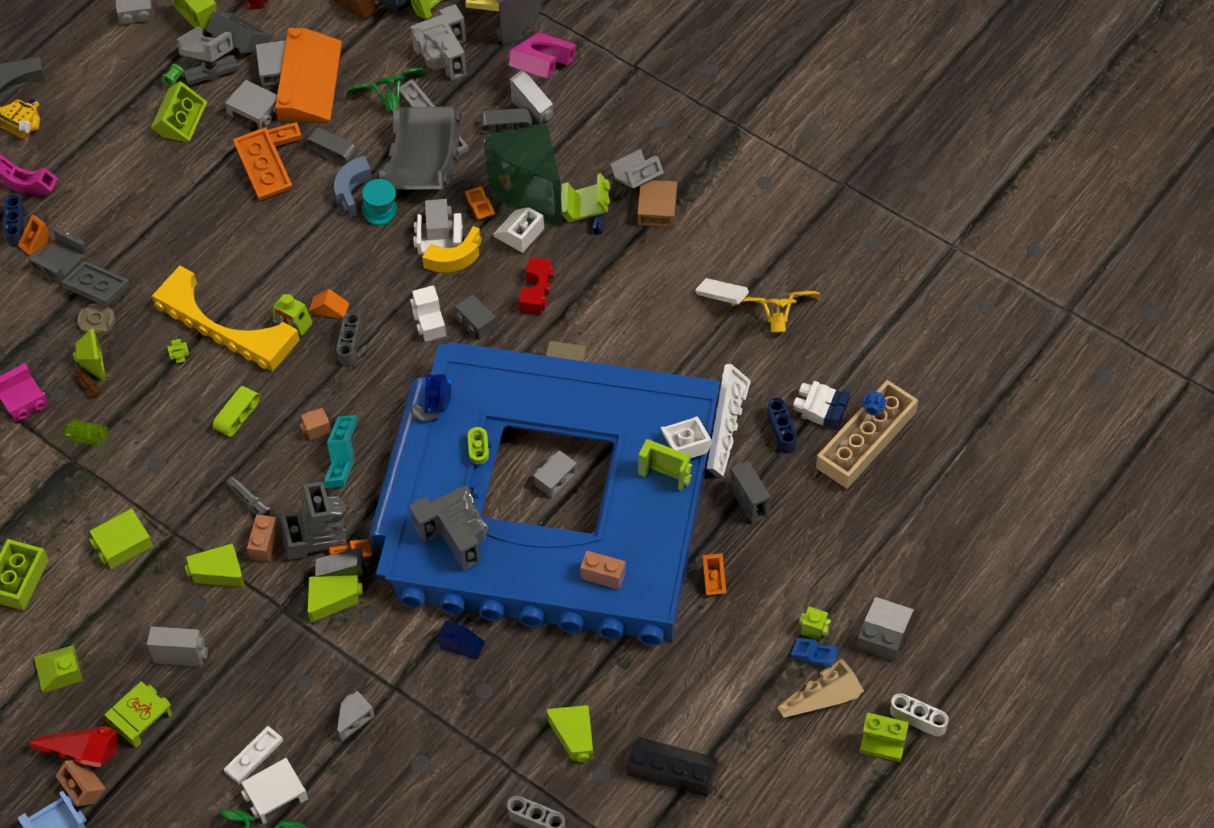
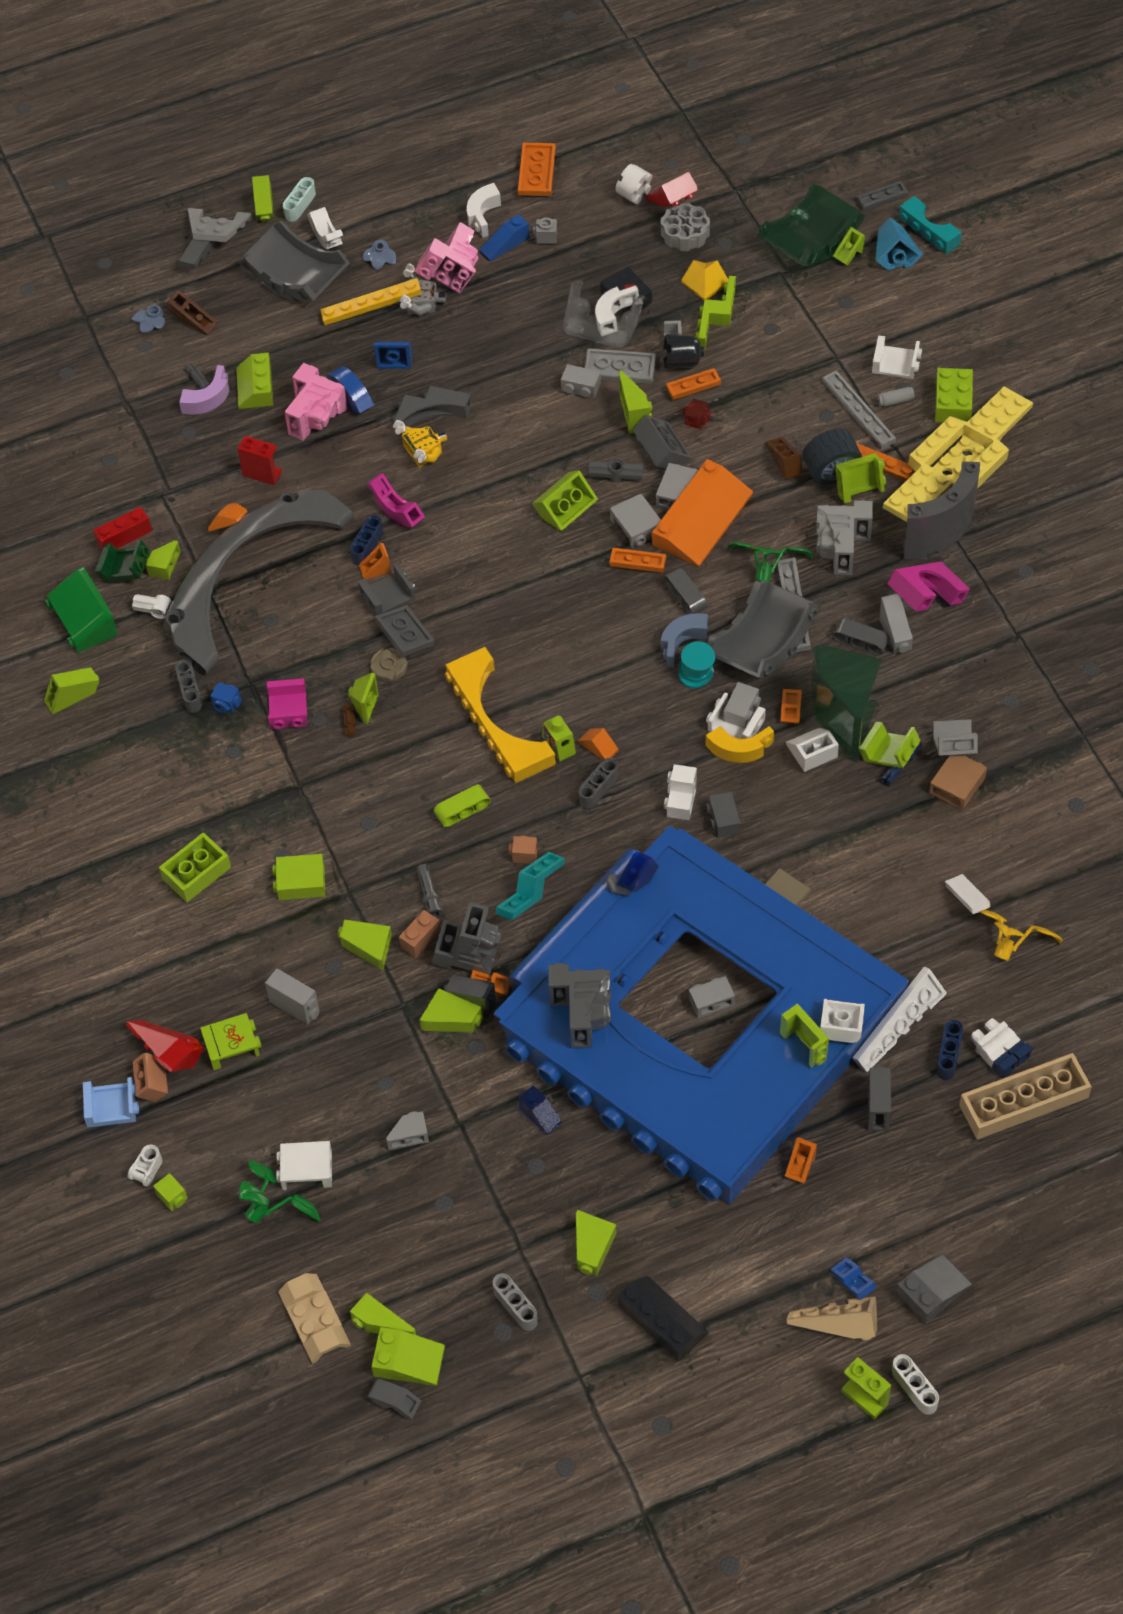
camera: 30 degrees right, 0 degrees up
(58, 669) = (187, 968): lime slope -> none
(85, 432) = (323, 765): clear neon green panel -> none
(172, 75) = (579, 460): bright green bush -> none
(178, 351) = (441, 726): lime gear -> none
(205, 48) = (621, 445): light grey panel -> none
(253, 755) = (307, 1124): white tile -> none
(262, 163) = (612, 581): orange plate -> none
(478, 447) = (648, 939): lime plate -> none
(534, 299) = (788, 822): red arch -> none
(603, 570) = (693, 1107): nougat brick -> none
(815, 623) = (868, 1251): lime brick -> none
(873, 403) = (1043, 1069): blue gear -> none

